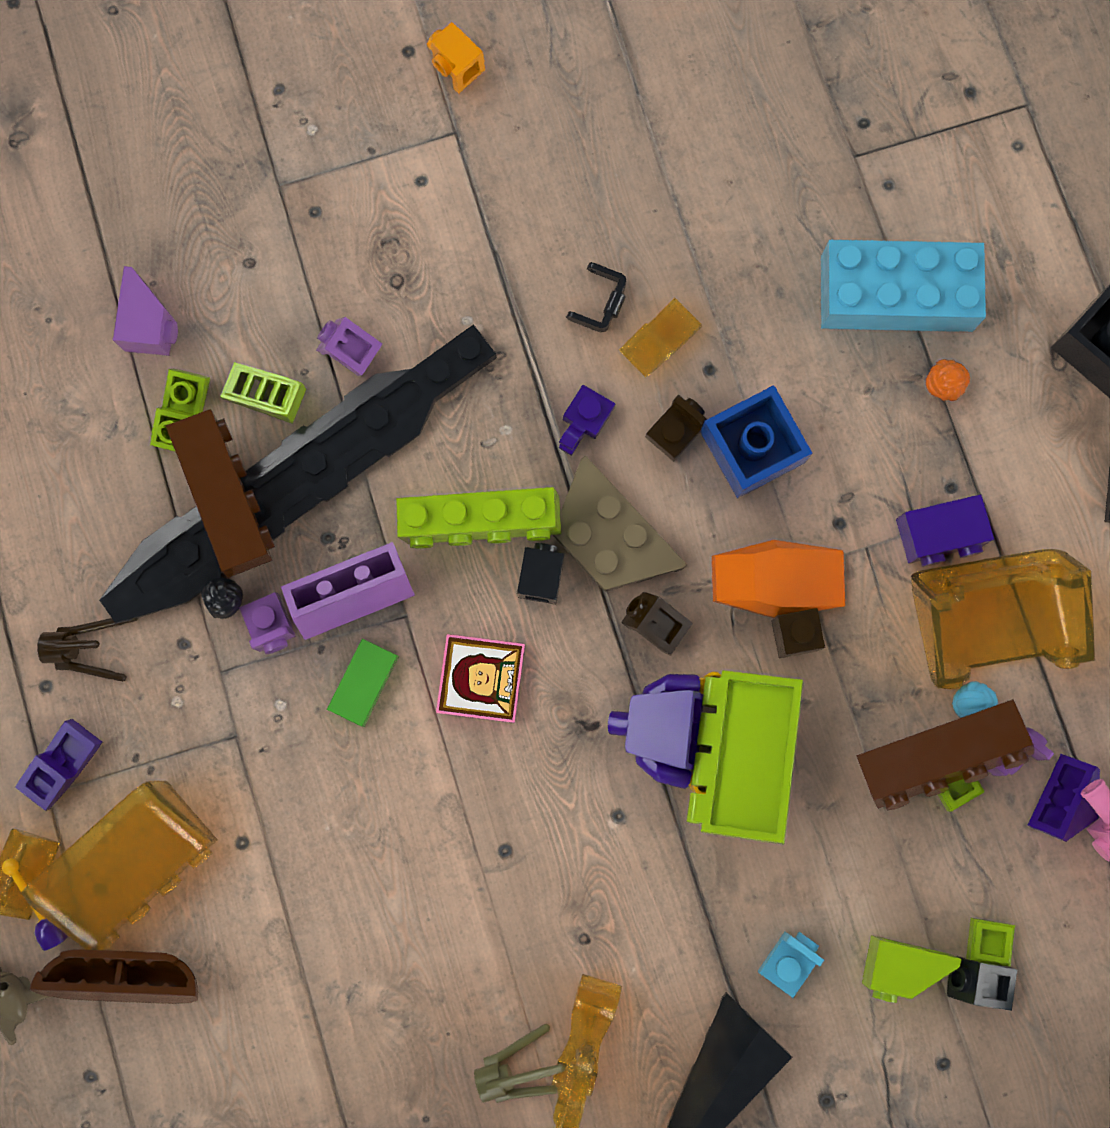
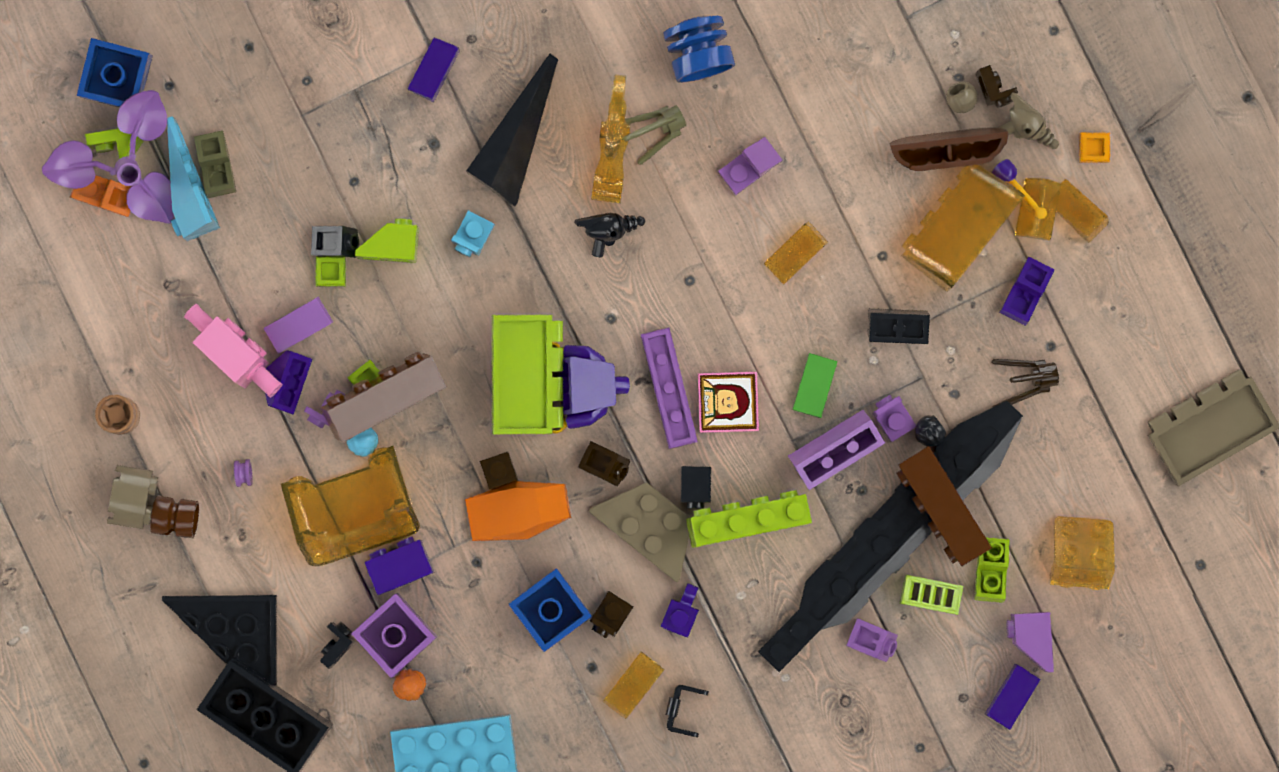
camera: 165 degrees right, 5 degrees up
(46, 1059) = (990, 84): none -> dark brown bracket
(57, 412) = (1083, 553): none -> clear yellow bracket
(88, 1048) = (961, 97): none -> dark tan piece
(187, 253) = (1012, 696): none -> dark purple slope
(235, 743) = (898, 326): none -> black hinge
(355, 866) = (796, 252): none -> clear yellow slope
(397, 998) = (750, 165): none -> medium lavender slope
(555, 710) = (669, 388): none -> medium lavender tile
(605, 940) = (607, 229): none -> black piece
(963, 440) = (394, 635): none -> medium lavender brick
(1029, 447) = (335, 650): none -> black bracket
(1045, 874) = (298, 325): none -> medium lavender slope

